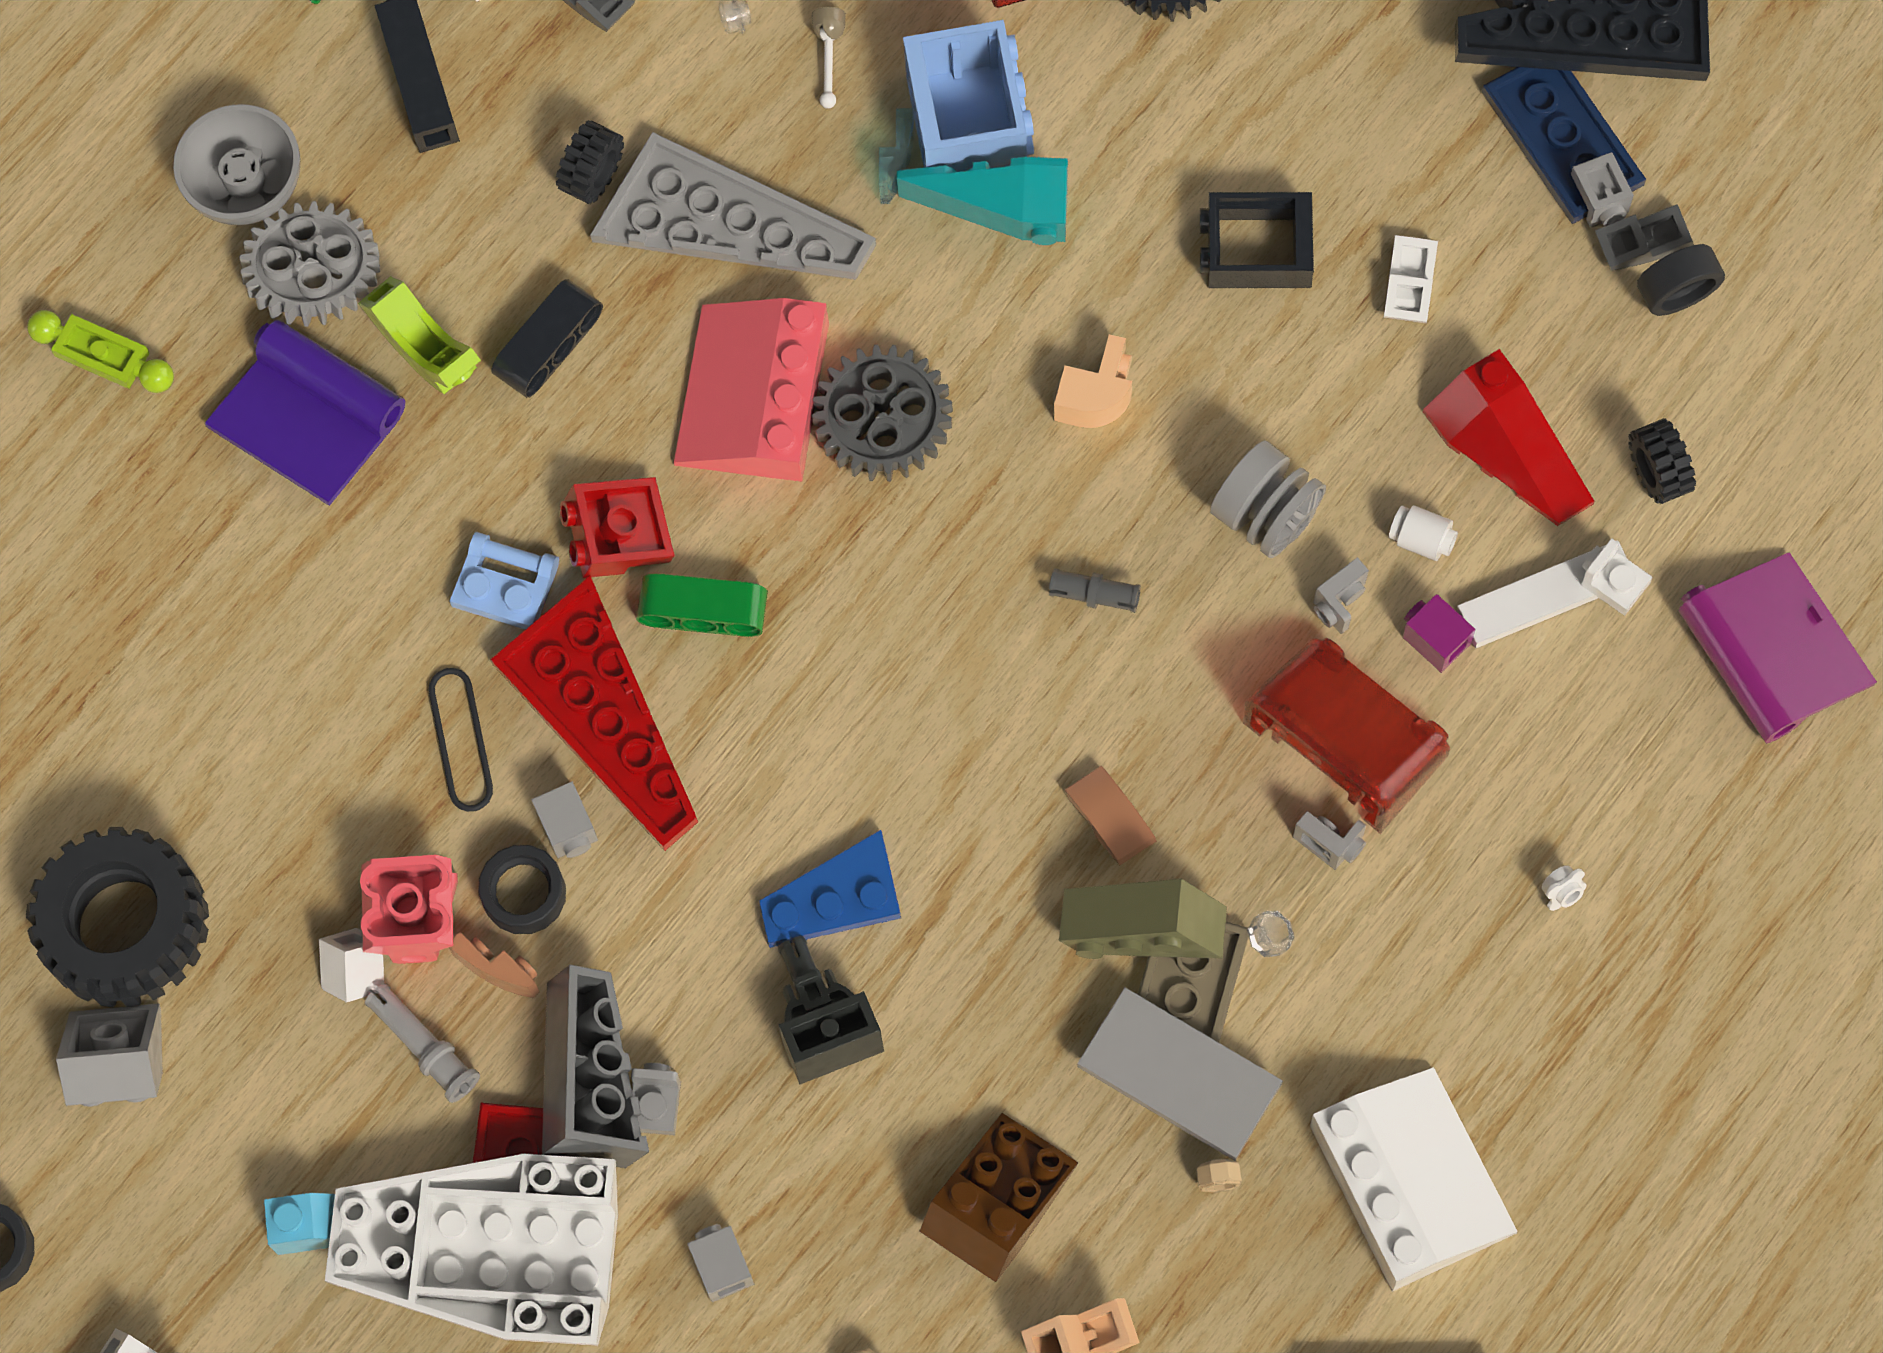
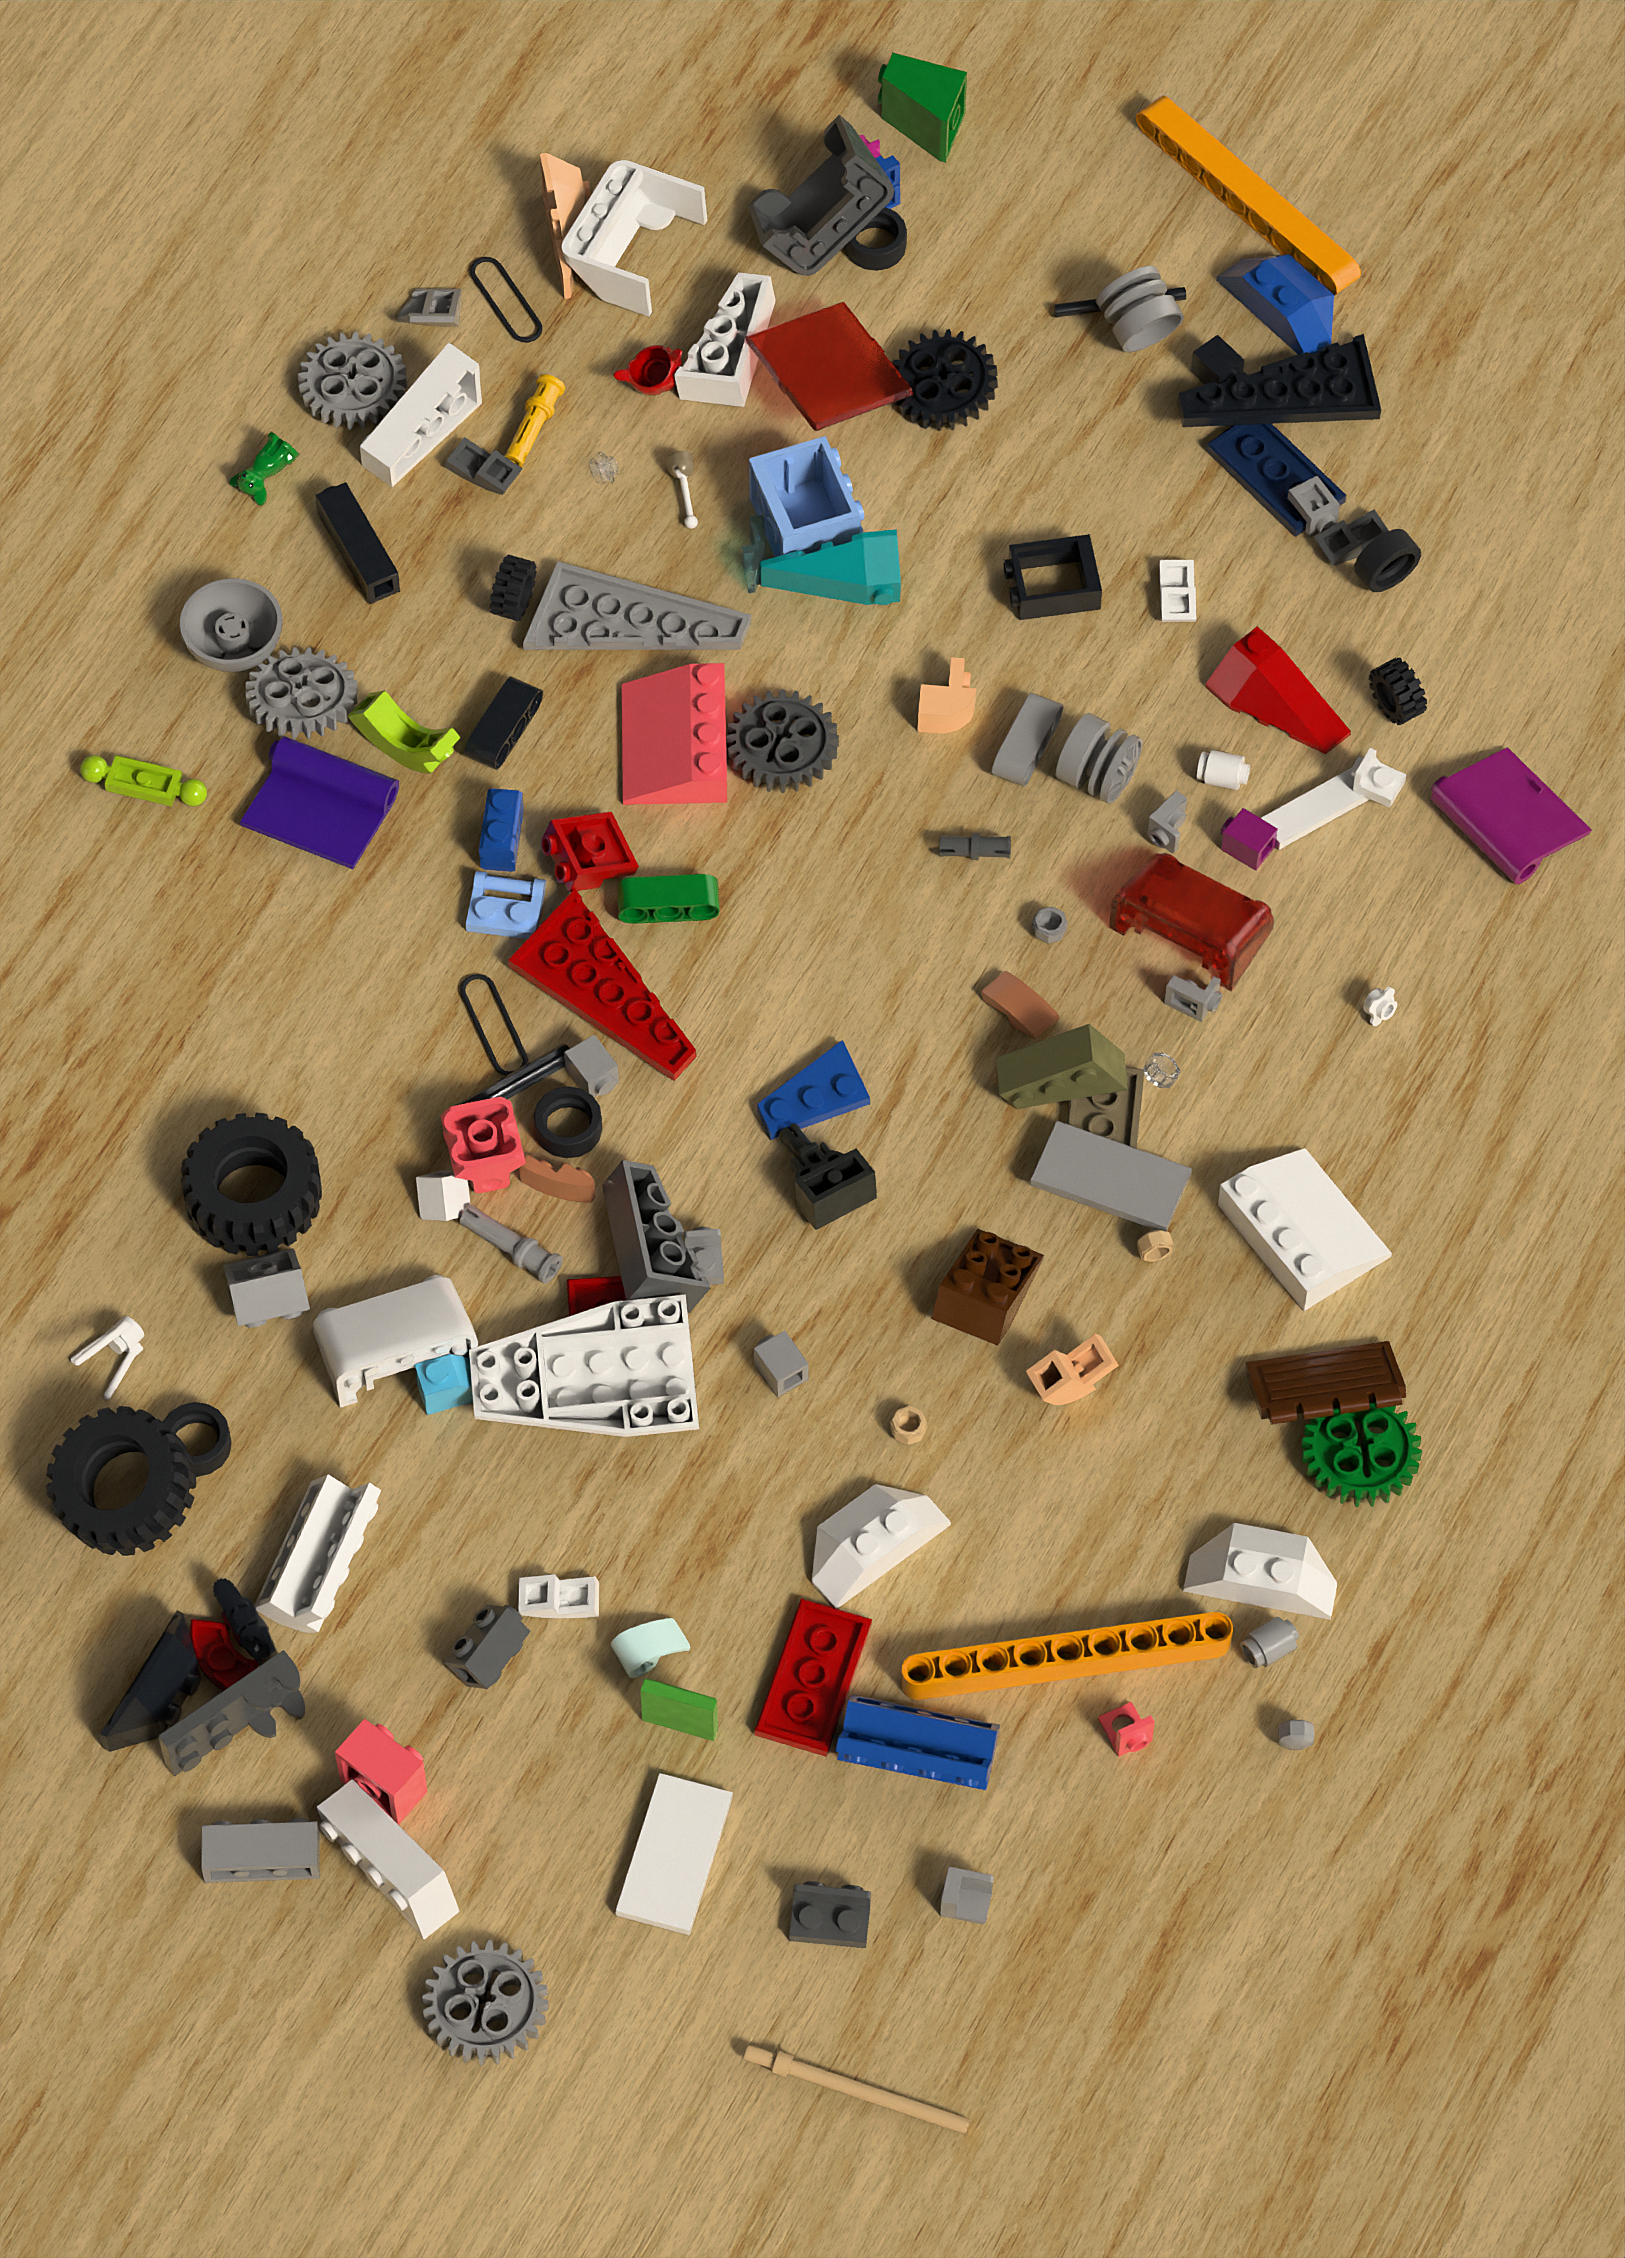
camera: 15 degrees left, 10 degrees down
(252, 1149) = (391, 1334): none -> white windscreen
(466, 824) = (523, 1077): none -> black axle
(515, 483) = (501, 830): none -> blue brick
(1168, 711) = (1050, 924): none -> light grey tile
(1186, 455) = (1027, 739): none -> light grey beam

